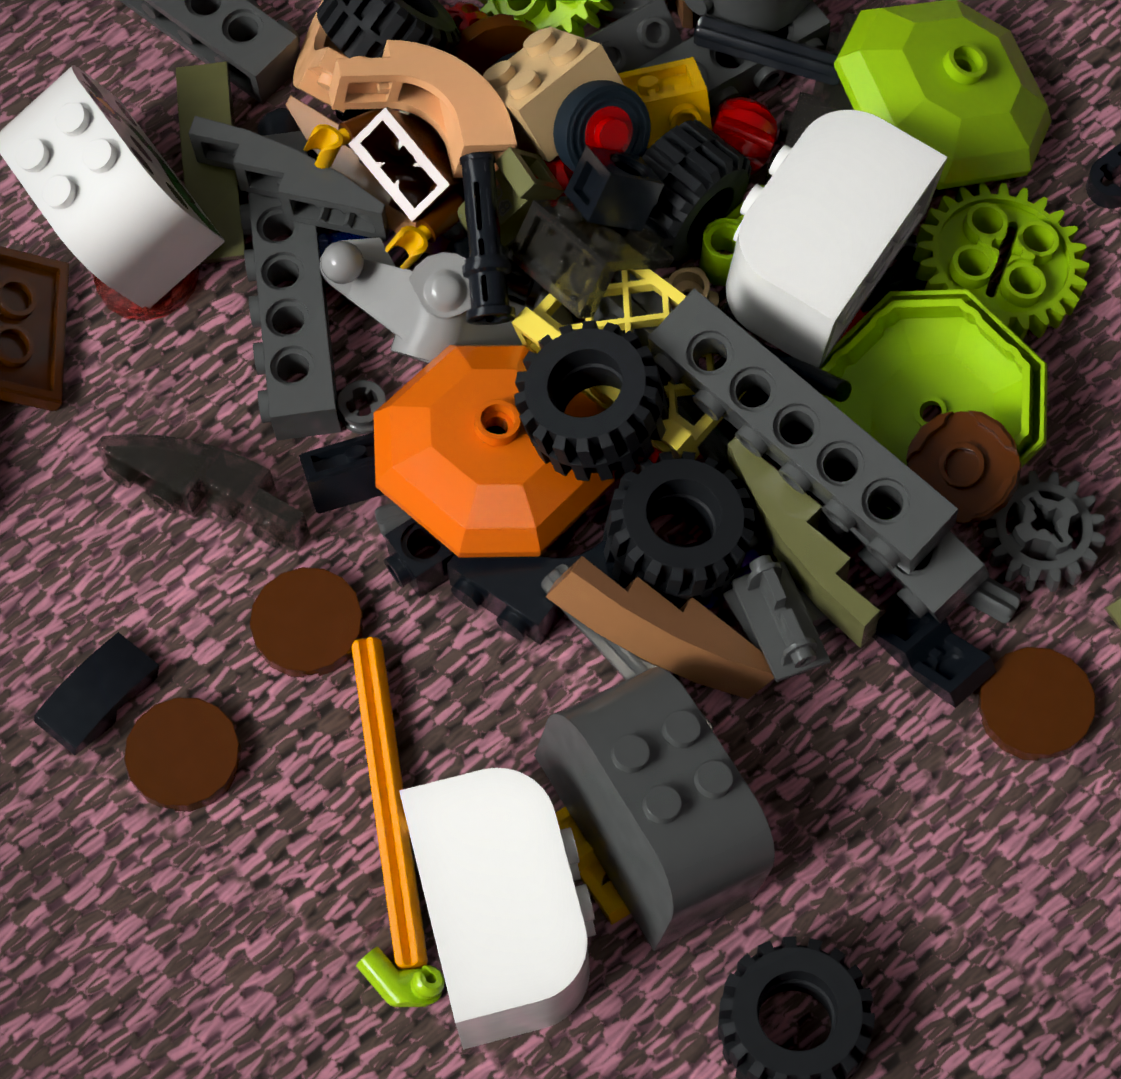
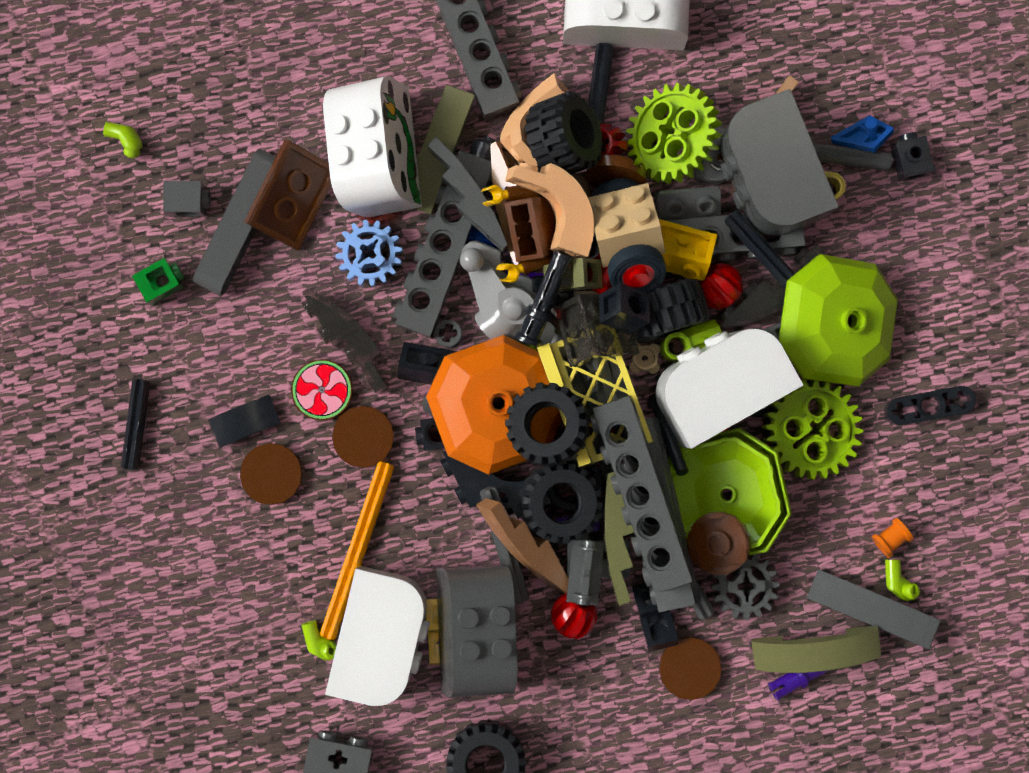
camera: 25 degrees right, 20 degrees up
(190, 365) = (378, 241): none -> light blue gear
(202, 586) = (322, 390): none -> tile
(802, 710) = (572, 618): none -> red piece

